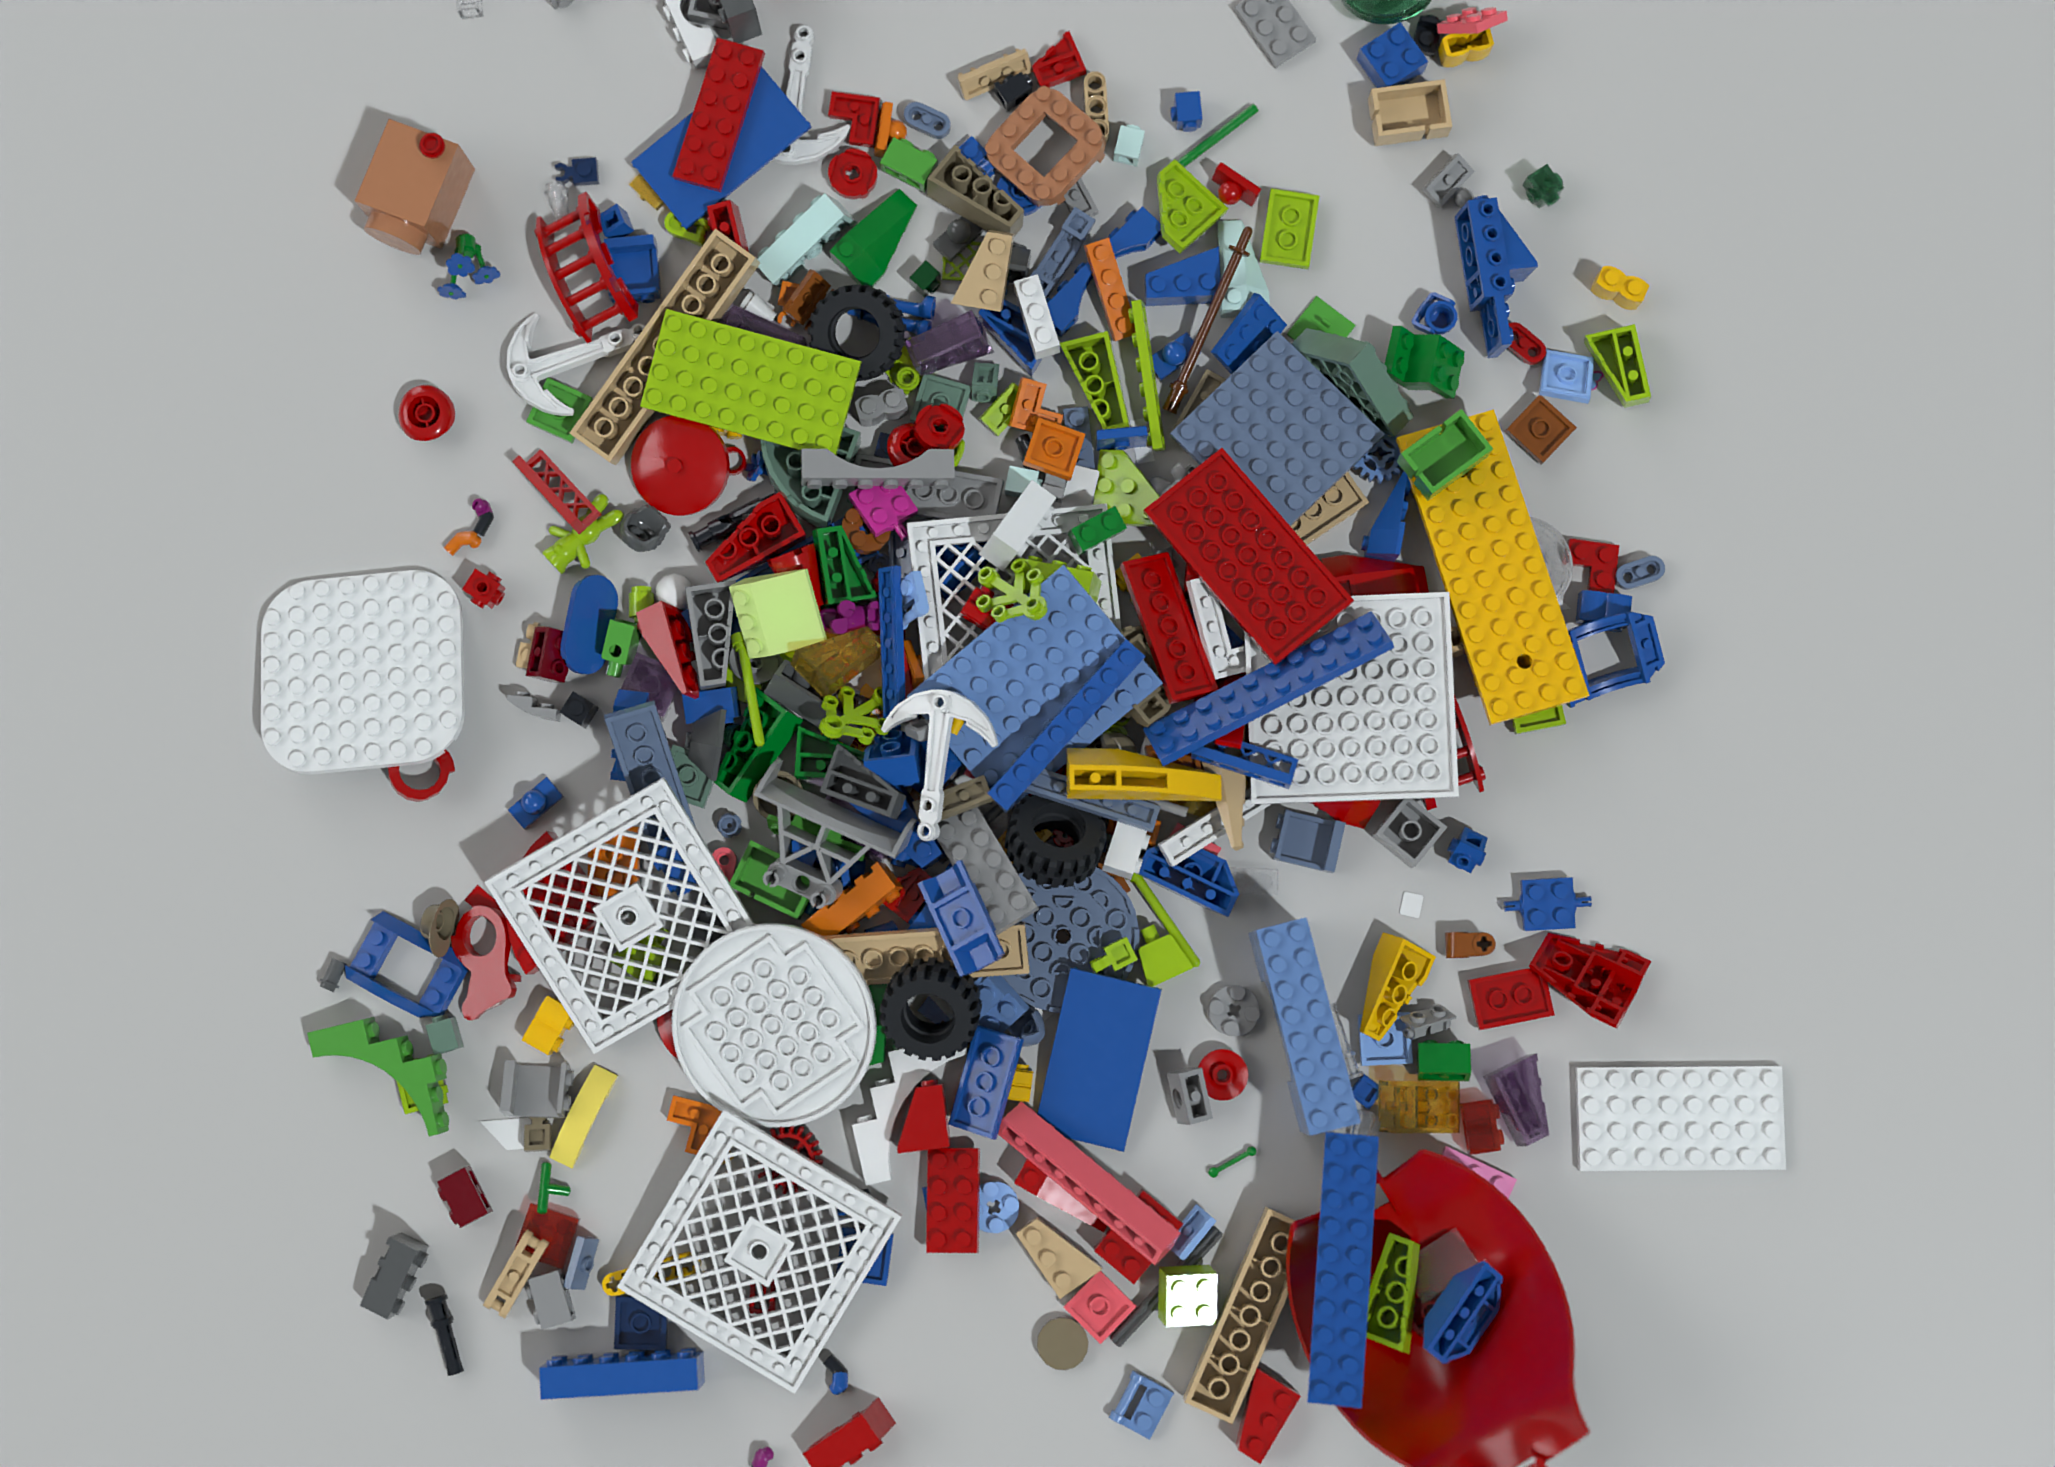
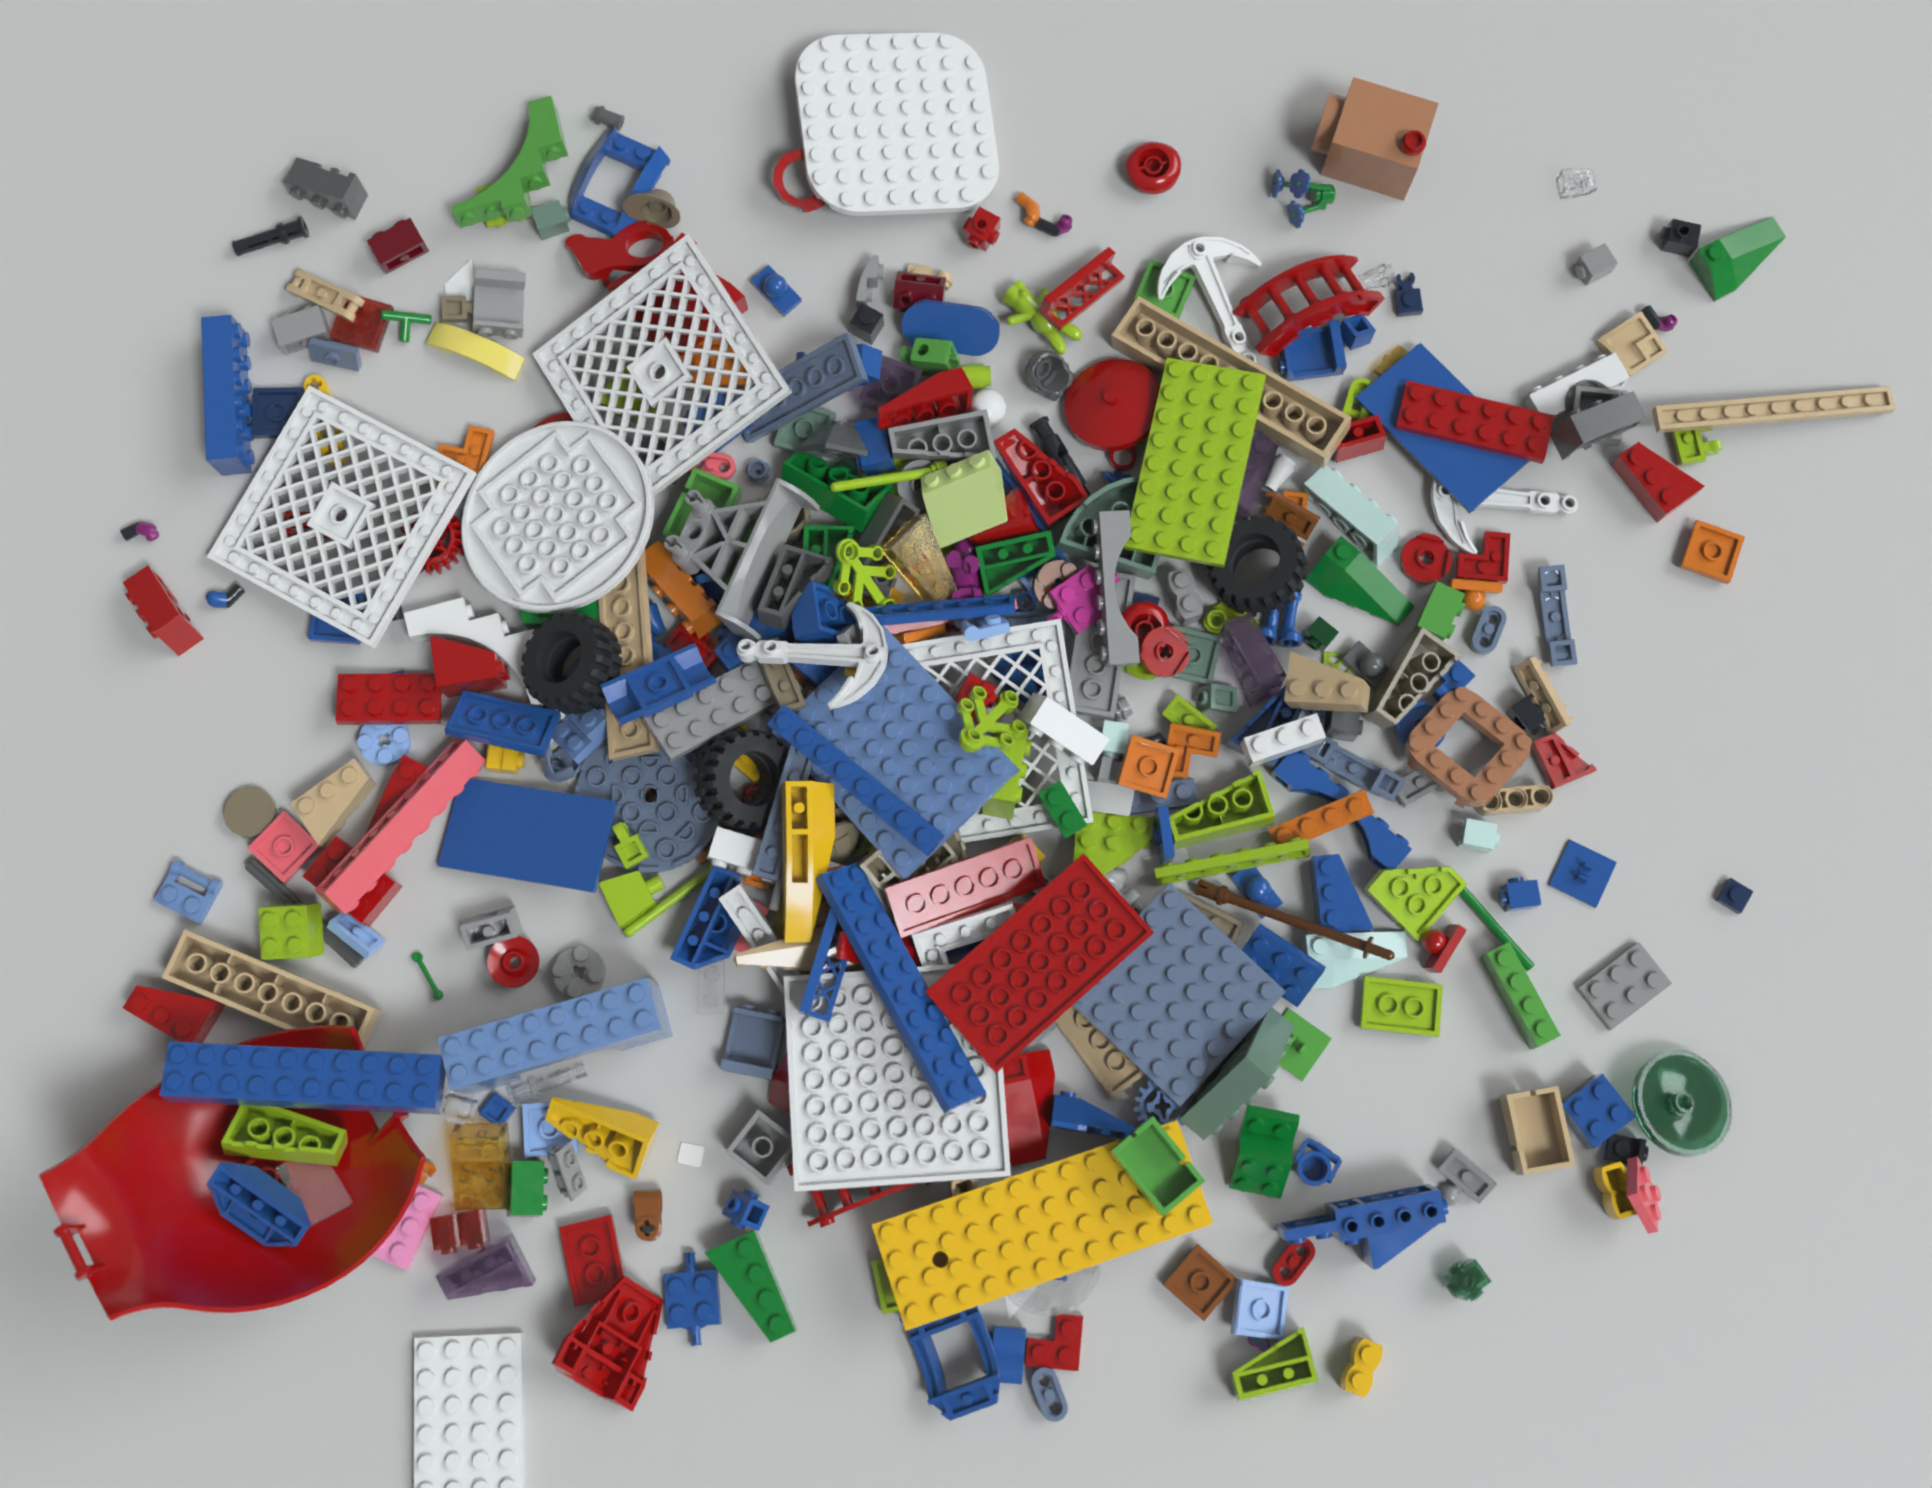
camera: 85 degrees right, 5 degrees down
(548, 1026) = (556, 310): yellow brick -> none
(917, 56) = (1554, 616): none -> sand blue slope
(991, 471) = (1123, 708): none -> light grey plate
(1166, 53) = (1582, 873): none -> blue piece
(1283, 118) = (1520, 996): none -> bright green brick
(1529, 847) = (753, 1281): none -> green wedge

